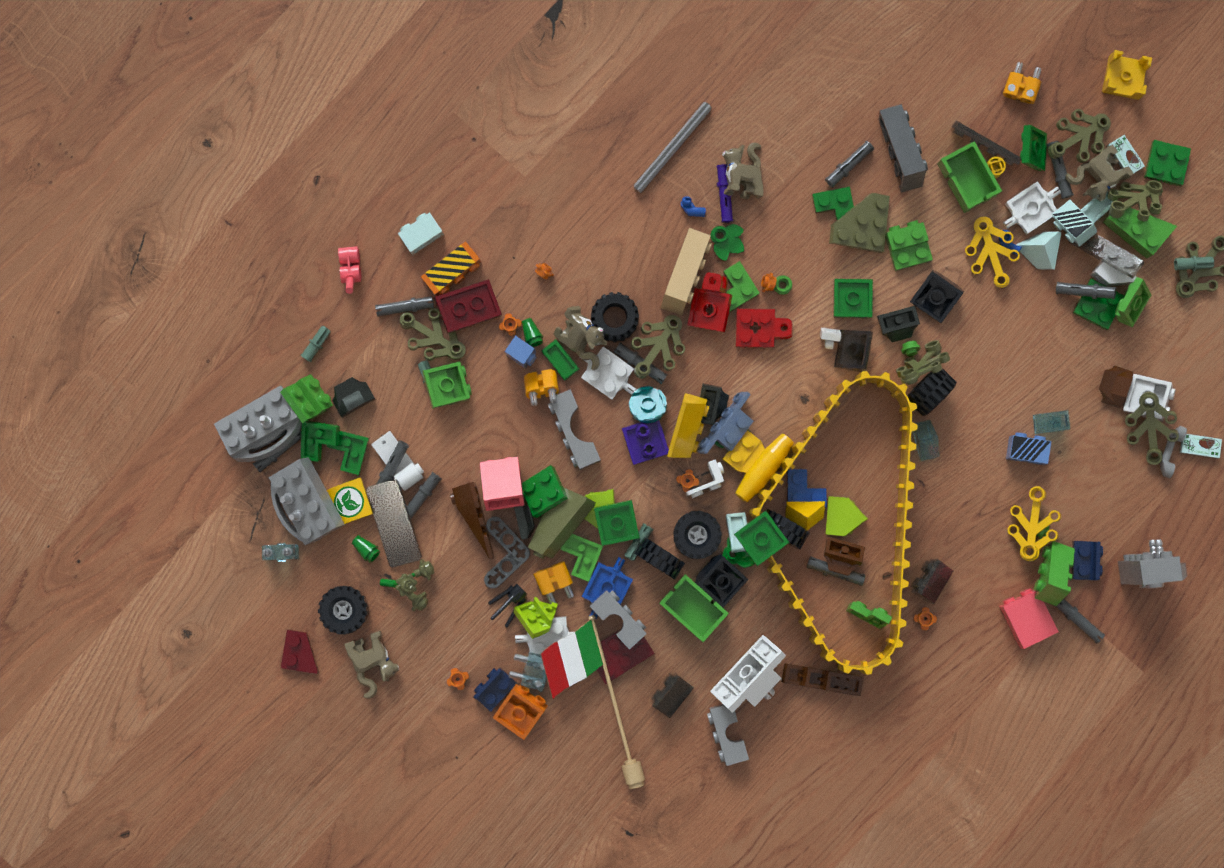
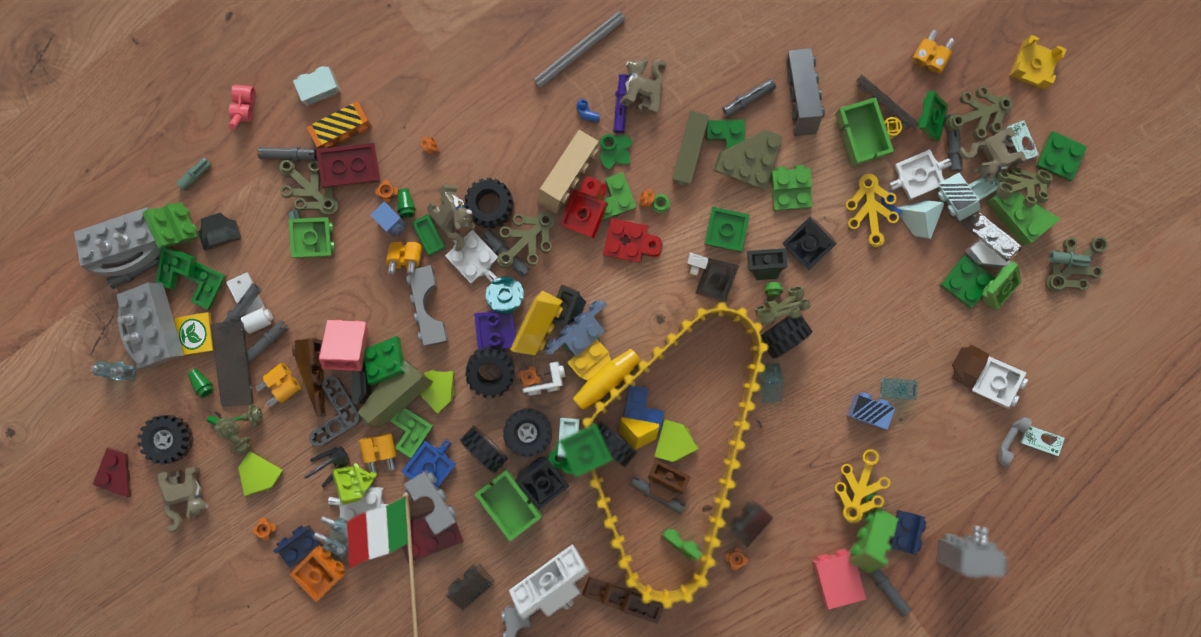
camera: 10 degrees right, 0 degrees up
(440, 627) = (257, 474): none -> lime slope
(445, 533) = (281, 383): none -> light orange piece
(616, 522) = (449, 405): green plate -> none
(645, 531) = (476, 420): sand green axle -> none
(654, 496) = (485, 386): none -> black tyre
(801, 224) = (690, 147): none -> olive slope
(1086, 290) = (966, 268): dark grey pin -> none
(1151, 424) = (997, 410): olive plant -> none

